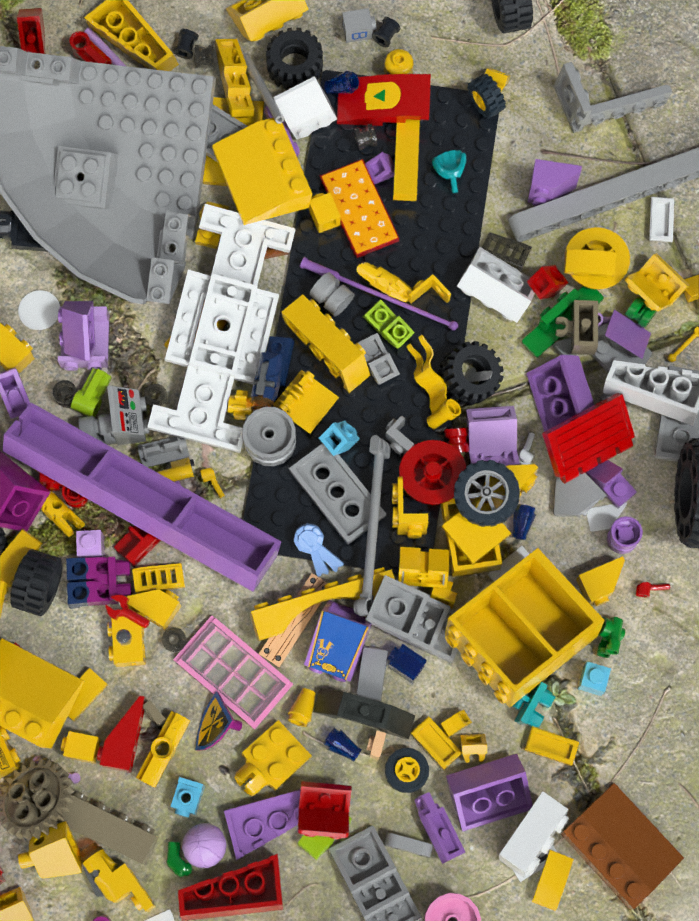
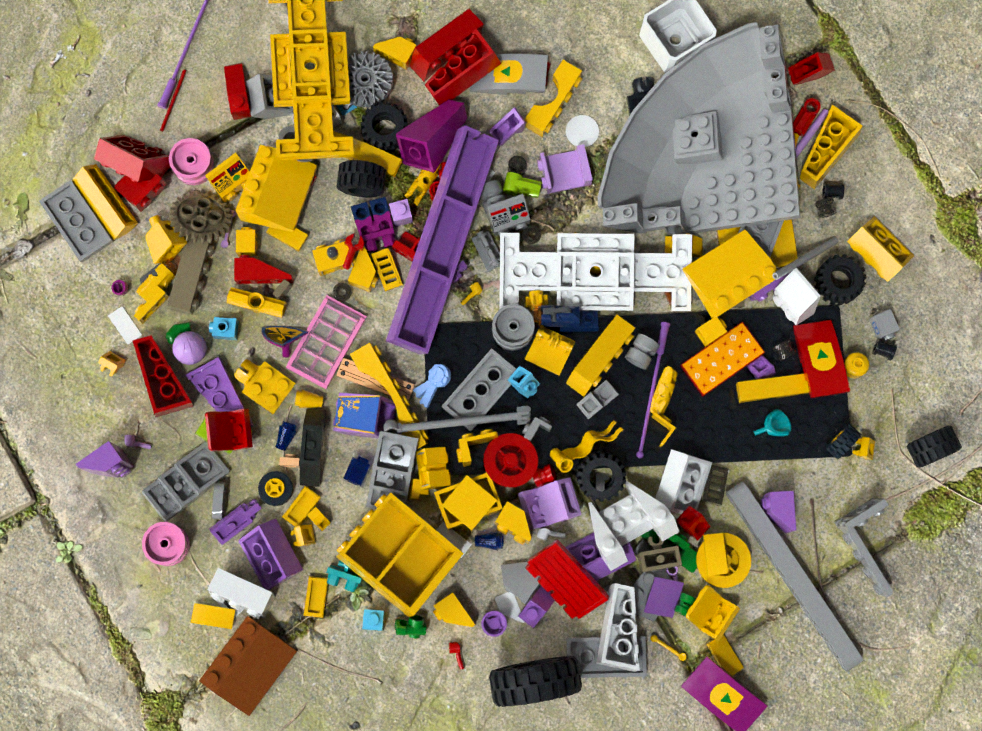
camera: 75 degrees right, 5 degrees up
(78, 329) = (567, 162): medium lavender slope -> none
(179, 470) = (473, 266): yellow piece -> none
(234, 77) = (812, 235): yellow slope -> none
(343, 83) = (826, 323): clear blue cone -> none
(372, 673) = (344, 447): light grey slope -> none
(388, 324) = (628, 402): lime slope -> none
(468, 477) = (489, 486): black wheel -> none
(532, 352) = (627, 521): none -> white wedge
(661, 219) = (773, 609): white tile -> none

